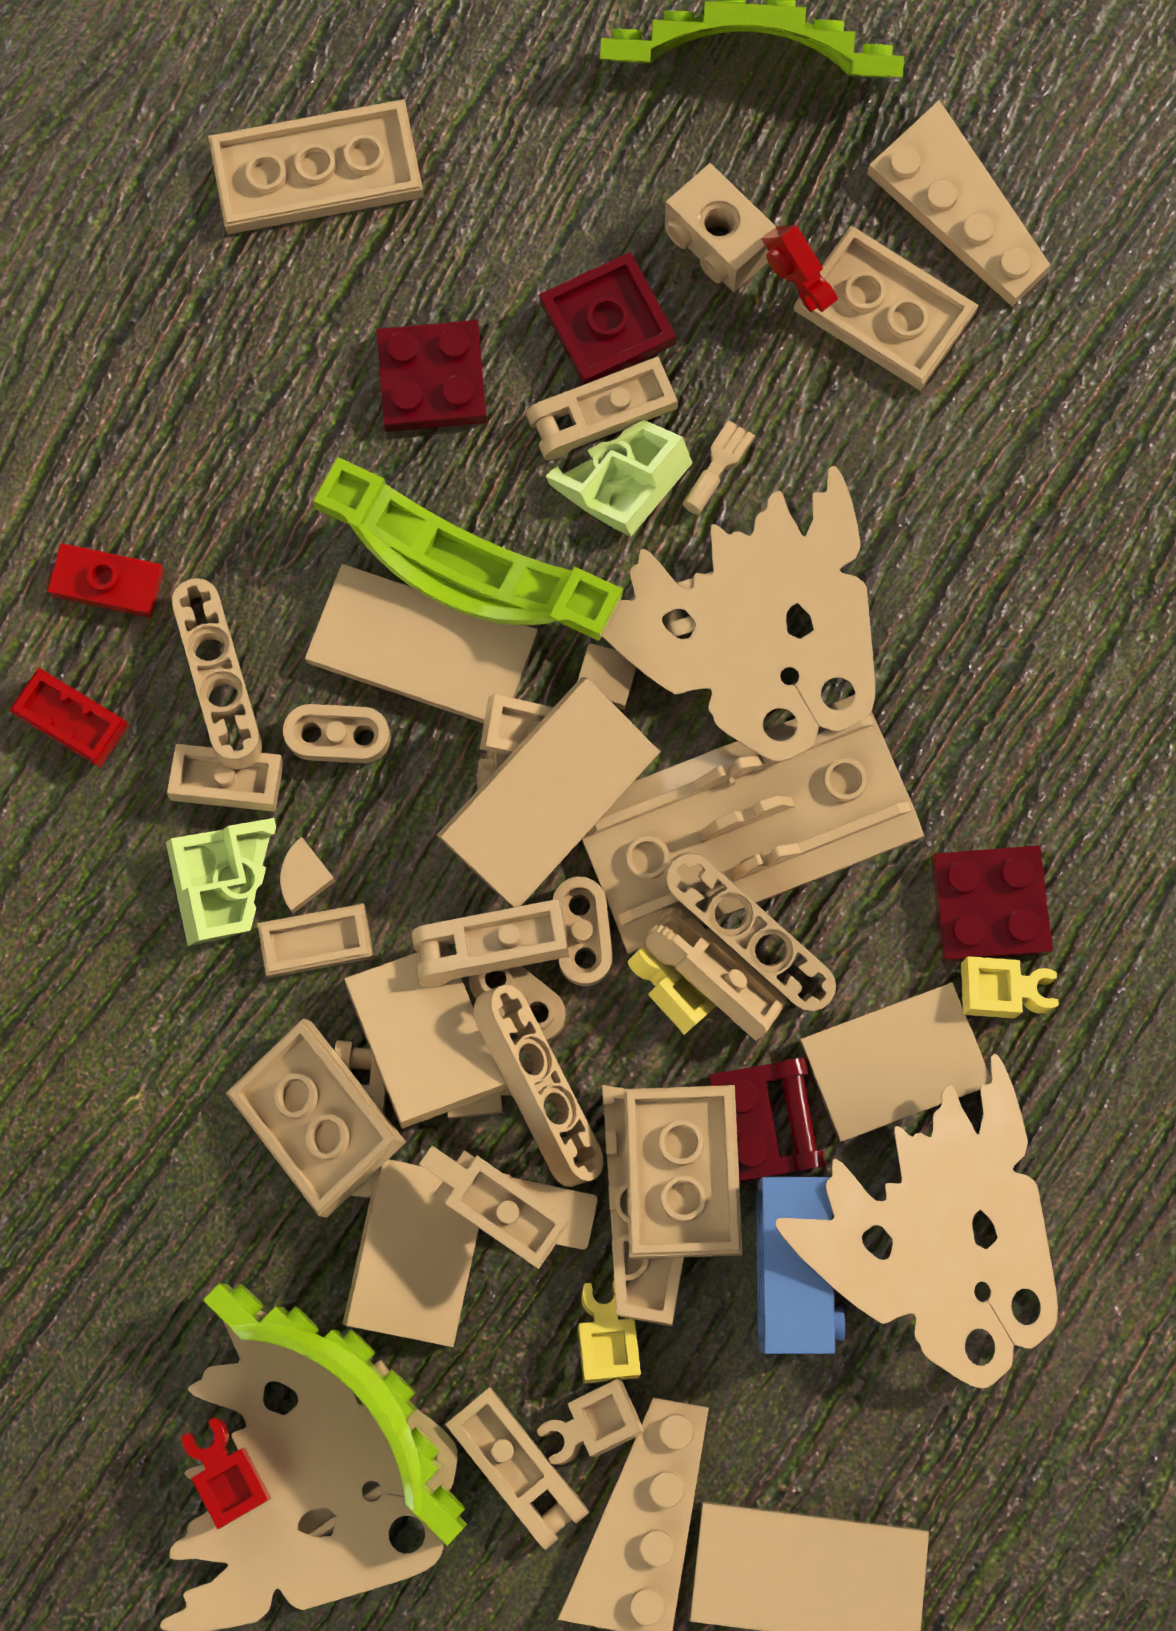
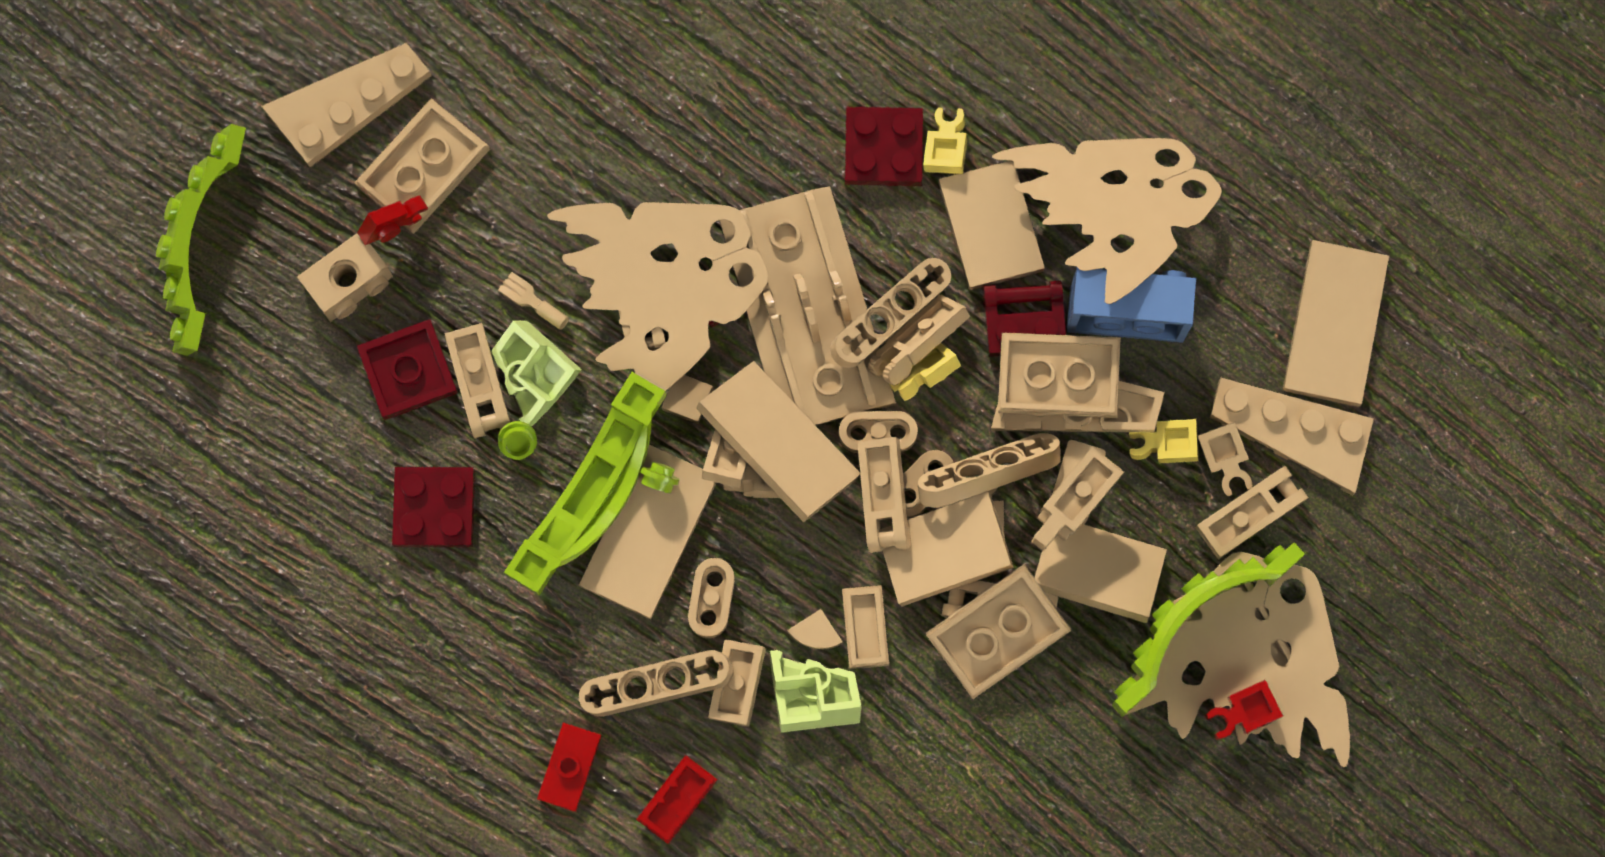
camera: 85 degrees left, 0 degrees up
(315, 166) = (246, 583): tan tile -> none
(487, 645) = (659, 477): none -> lime plate
(525, 465) = (517, 440): none -> lime plate

